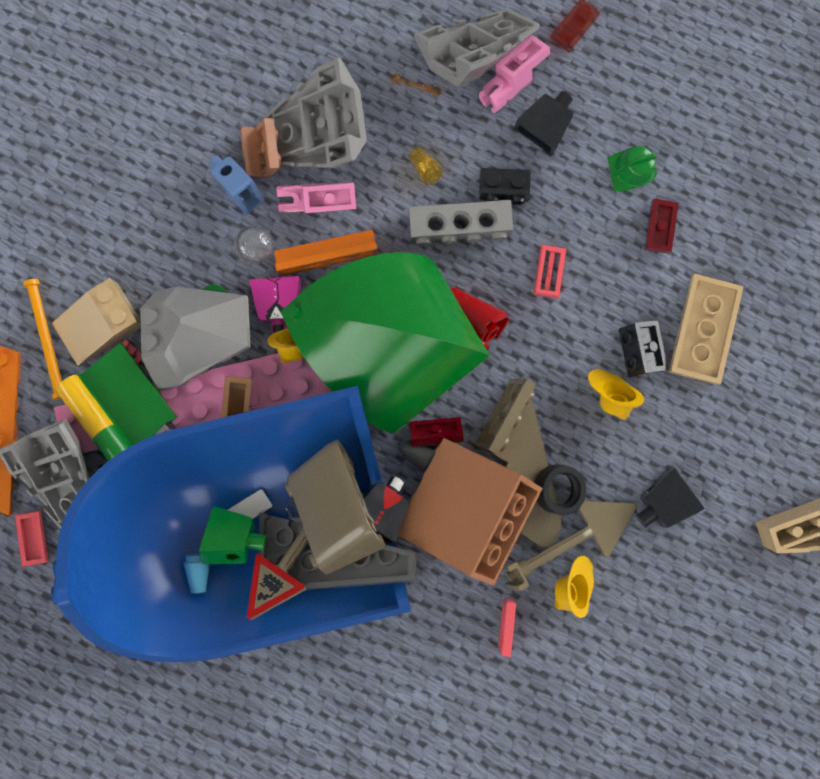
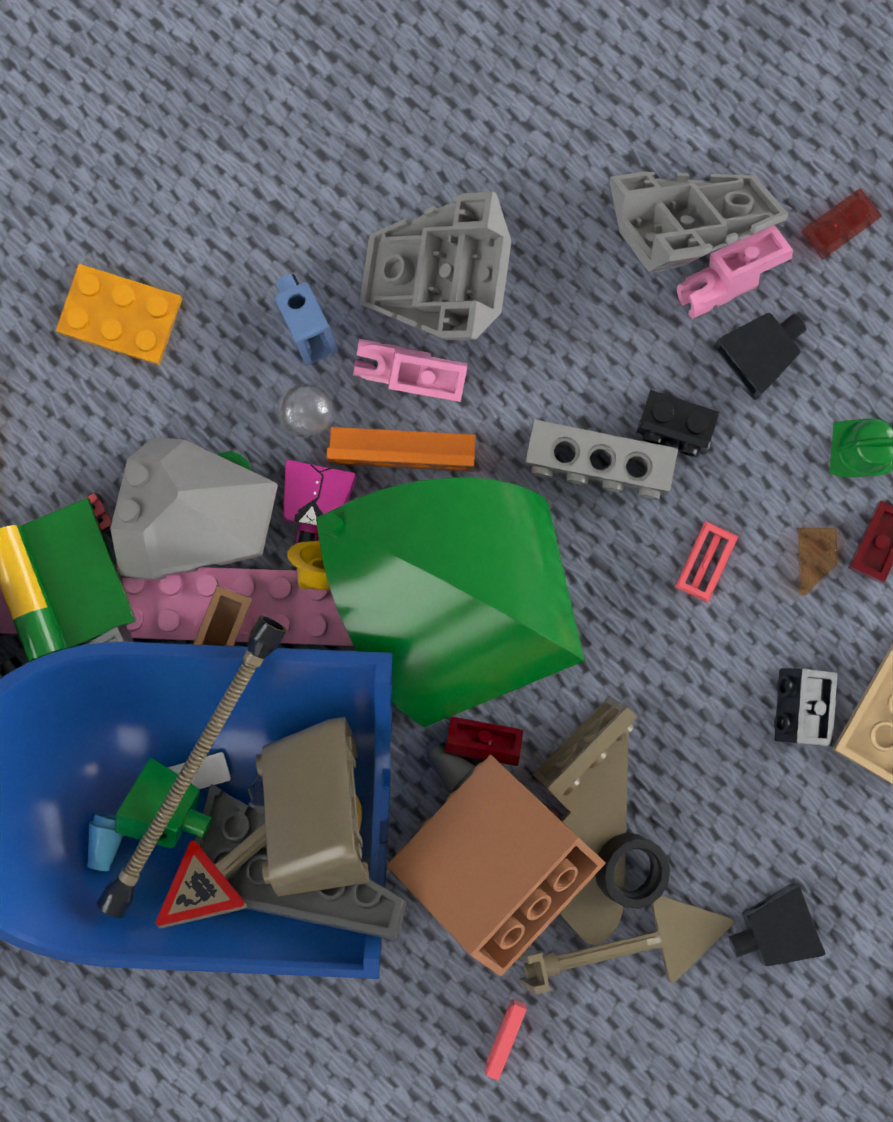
camera: 25 degrees right, 0 degrees up
(97, 321) = (62, 458): tan slope -> none
(109, 215) = (119, 314): none -> light orange plate
(260, 149) = (351, 281): nougat bracket -> none
(266, 400) = (262, 642): none -> dark tan hose
(386, 508) = (385, 828): black torso -> none
(396, 79) = (569, 232): clear orange hinge -> none
(426, 166) = (575, 367): clear yellow cone -> none
(484, 318) = (593, 602): red cone -> none
(575, 588) = (615, 1013): yellow piece -> none
(615, 394) = (748, 759): yellow piece -> none
(621, 247) = (816, 556): none -> clear orange tile

